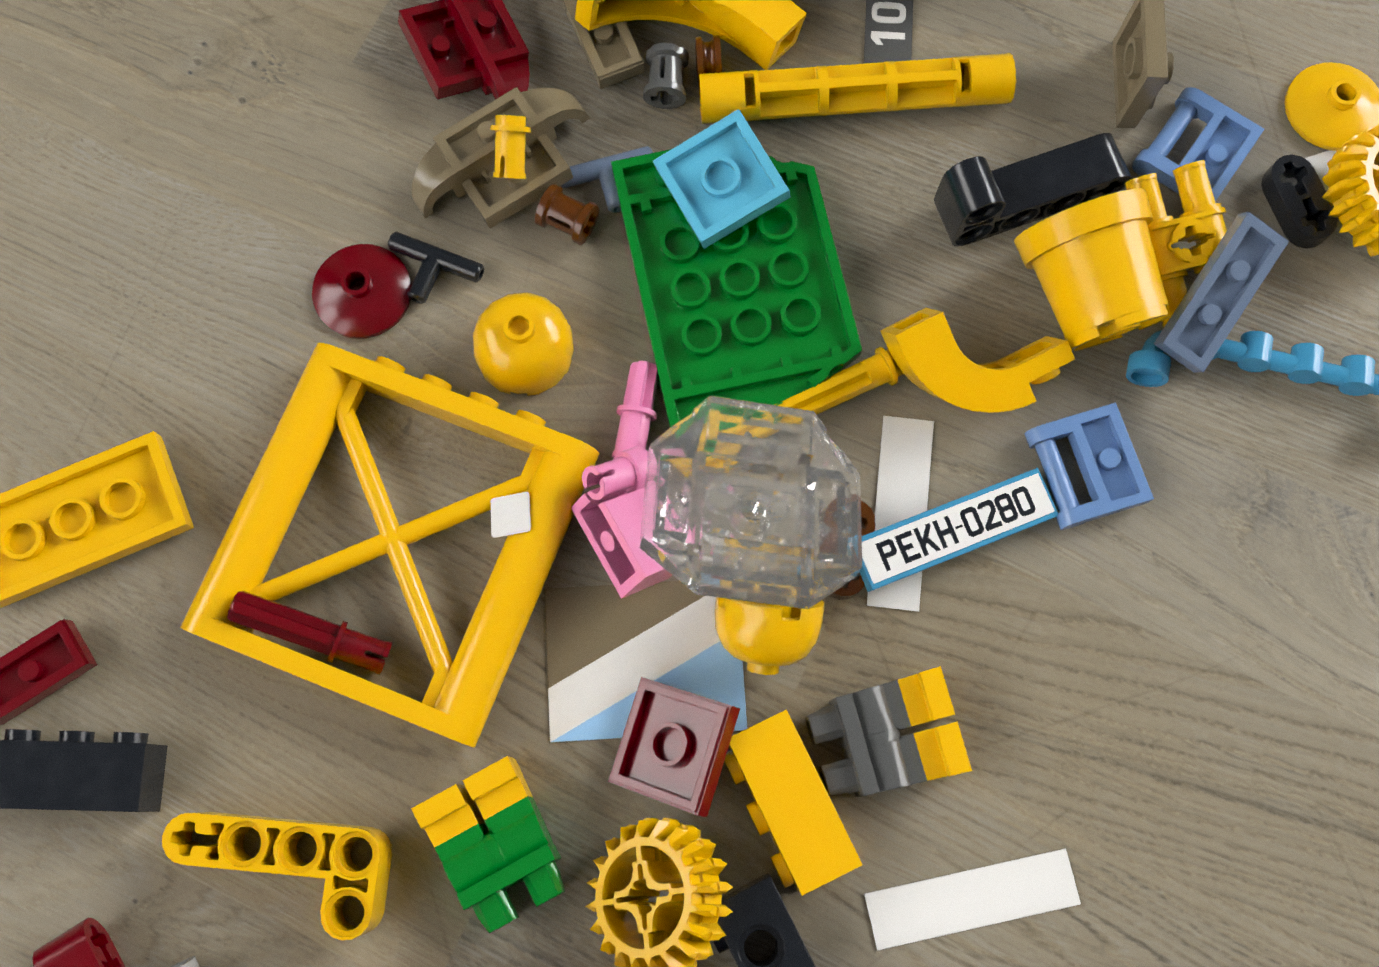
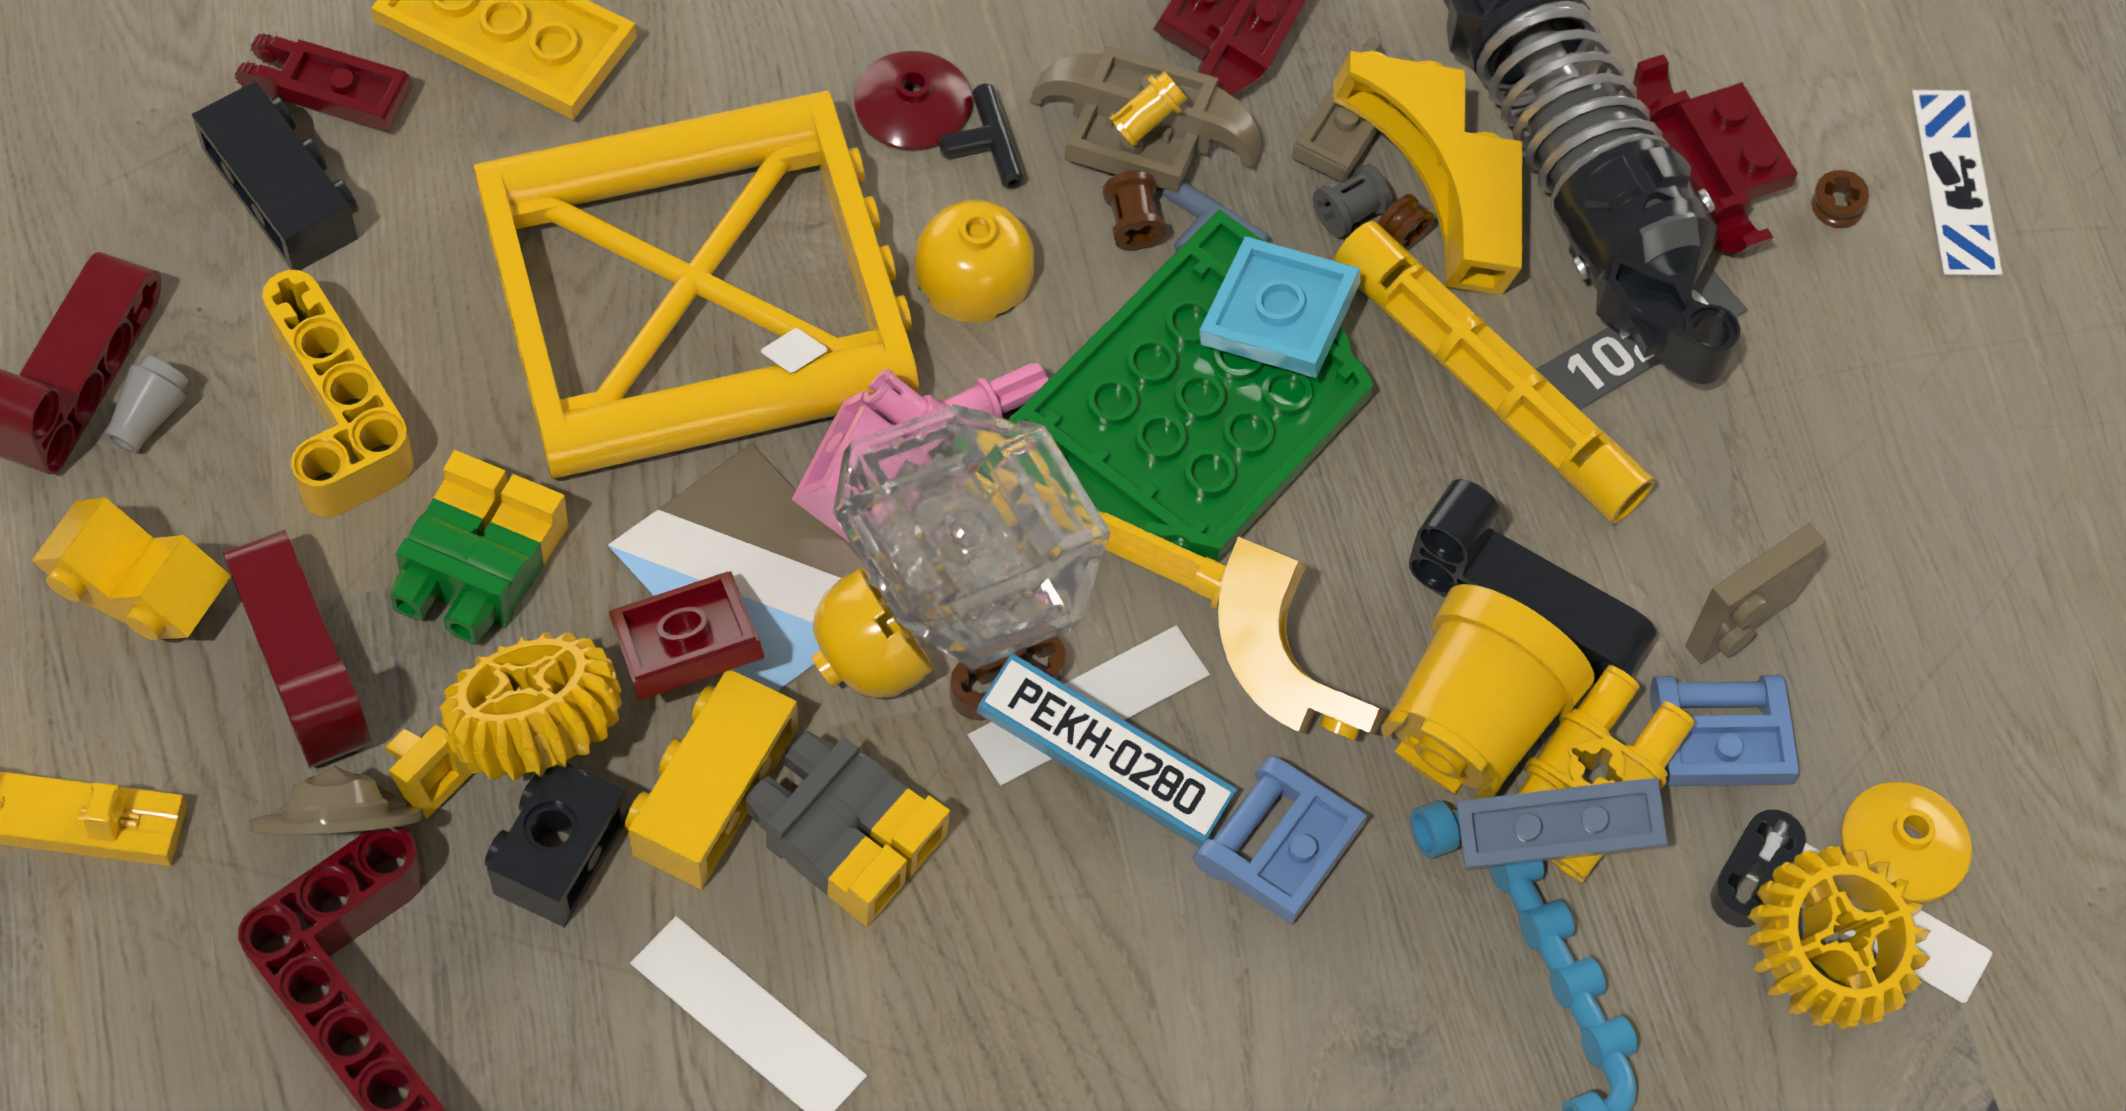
camera: 45 degrees right, 15 degrees down
(308, 631) = (552, 268): dark red axle -> none

